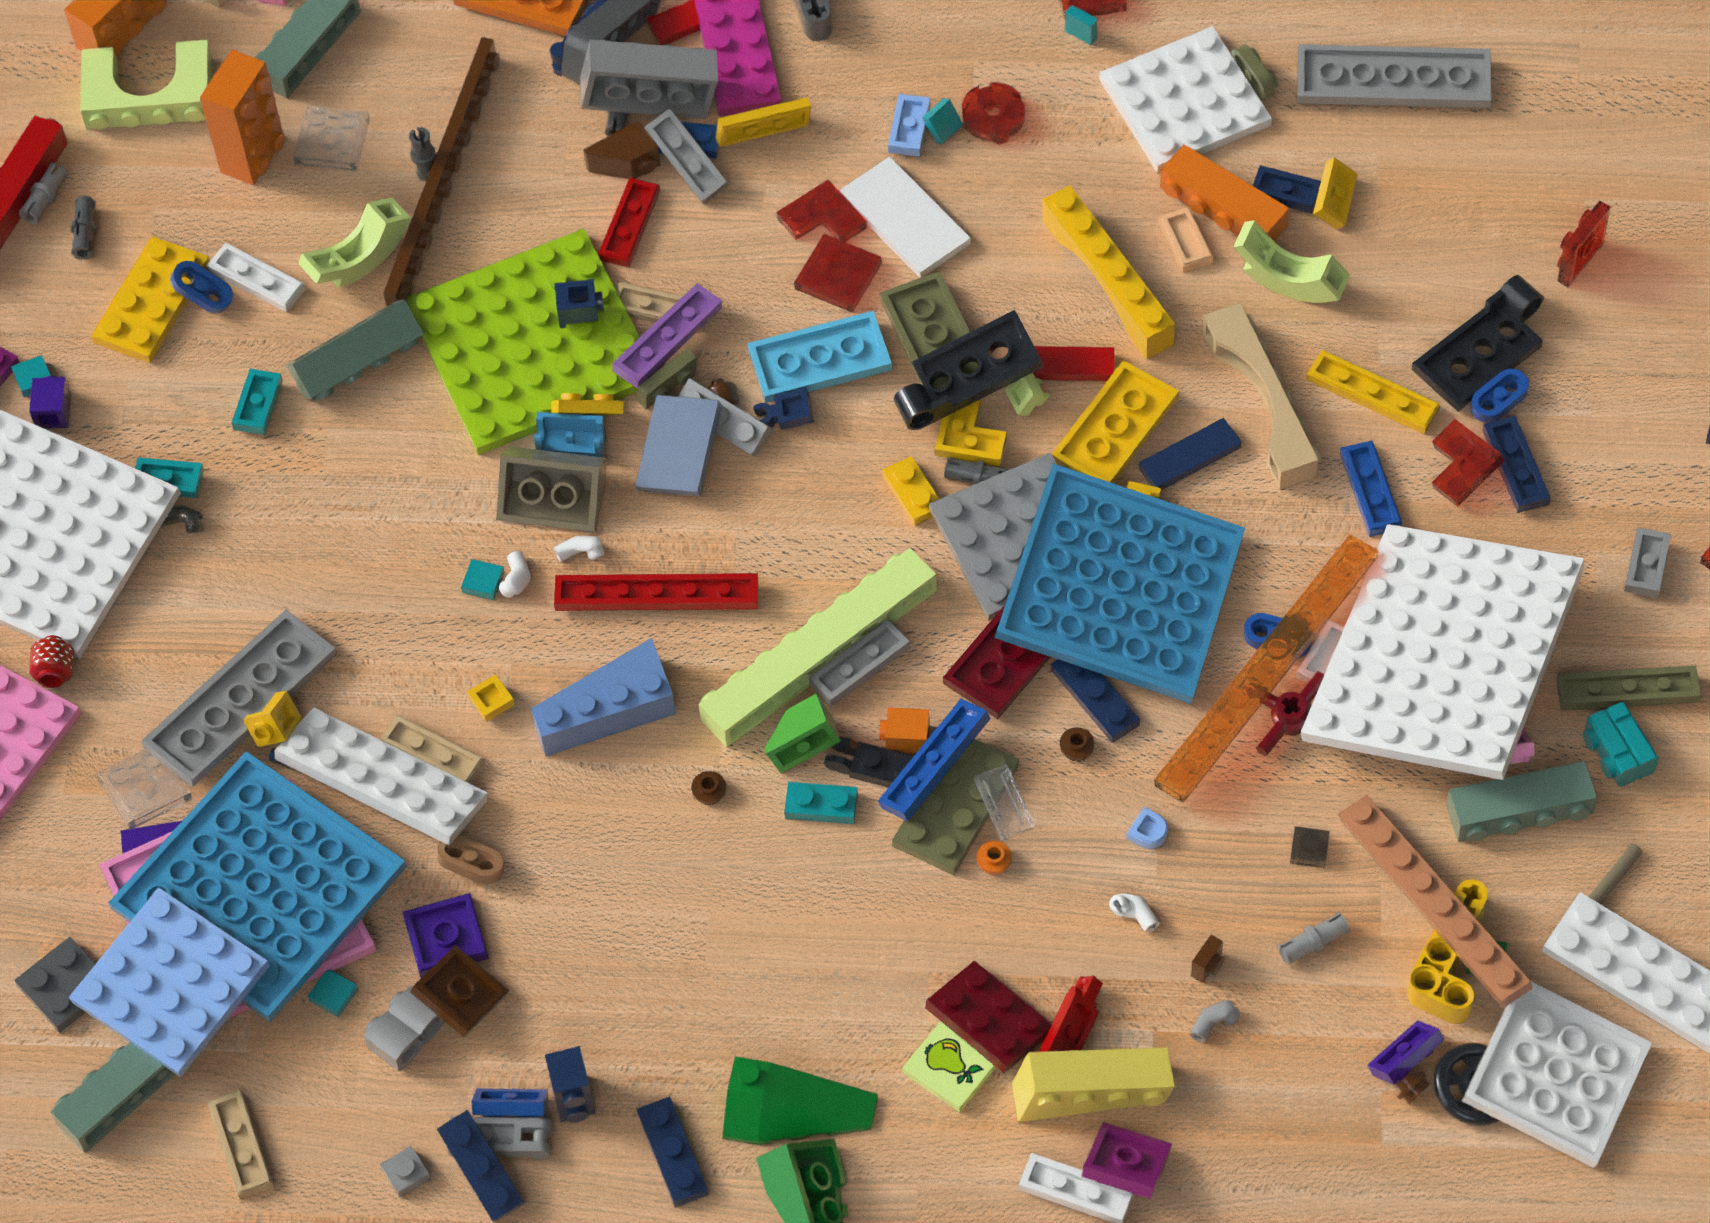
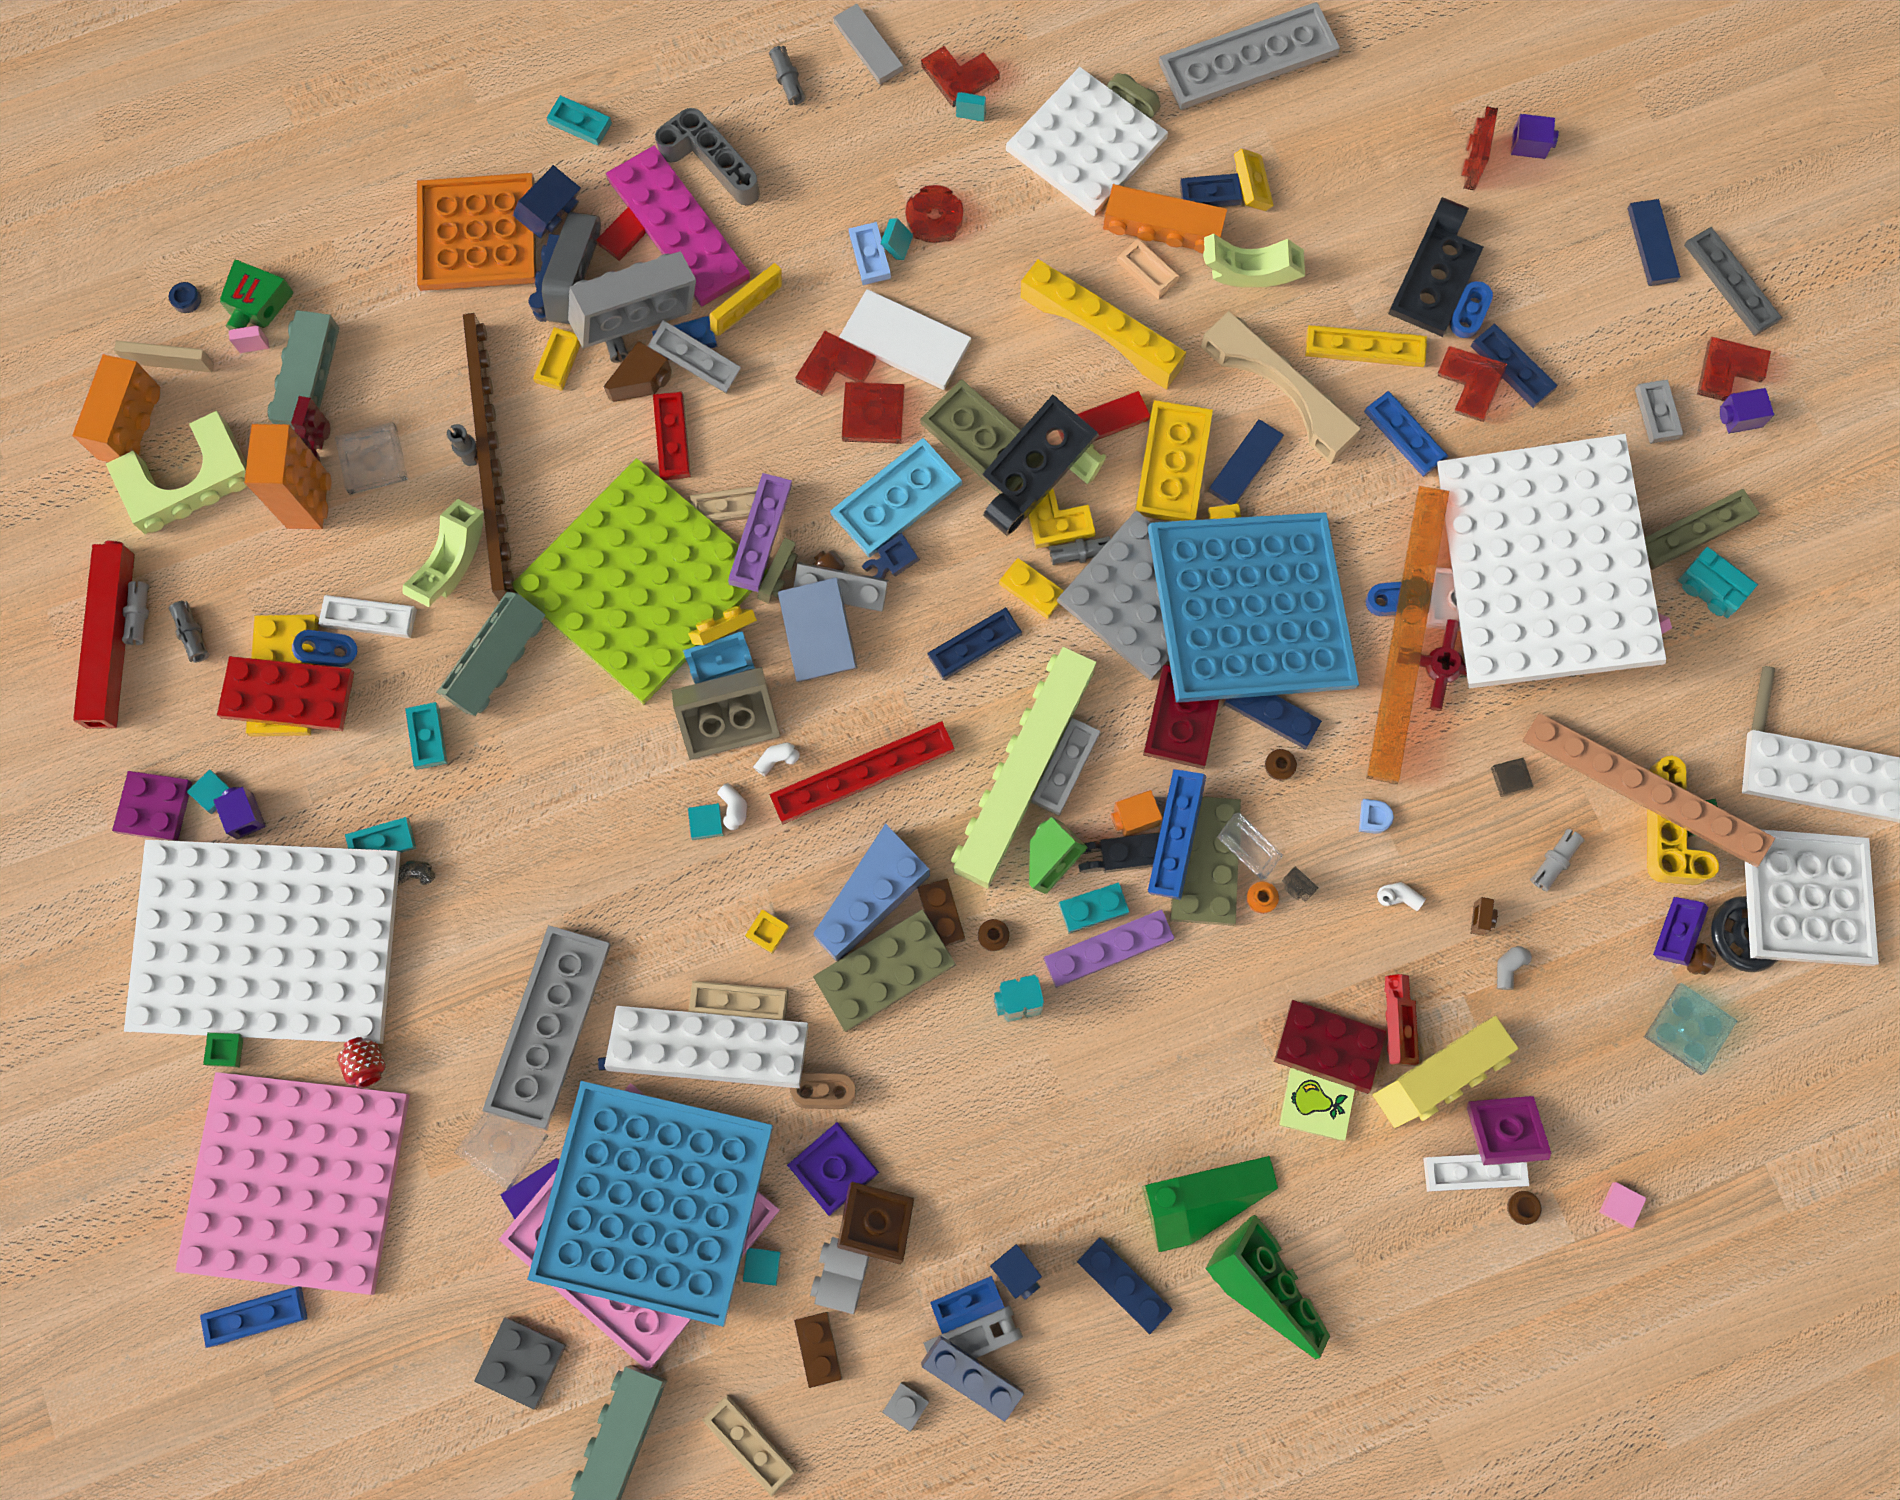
camera: 25 degrees left, 15 degrees up
(145, 312) = (285, 693): none -> red plate
(169, 982) = (619, 1334): light blue plate -> none
(275, 720) = (593, 1037): yellow bracket -> none
(288, 83) = (310, 424): none -> dark red plate
(348, 1087) = (818, 1349): none -> reddish brown plate
(553, 113) = (557, 359): none -> yellow tile
(577, 302) = (663, 526): brick -> none
(585, 776) = (884, 970): none -> olive plate
(668, 750) = (942, 911): none -> reddish brown plate
(700, 845) = (1019, 998): none -> teal brick
(816, 845) = (1108, 948): none -> medium lavender plate
(828, 519) = (974, 643): none -> dark blue tile
(1035, 858) = (1299, 885): none -> clear smoke plate
(1368, 1147) = (1690, 1028): none -> clear light blue plate
(1521, 802) = (1684, 651): sand green brick -> none
(1653, 255) = (1534, 136): none -> dark purple brick

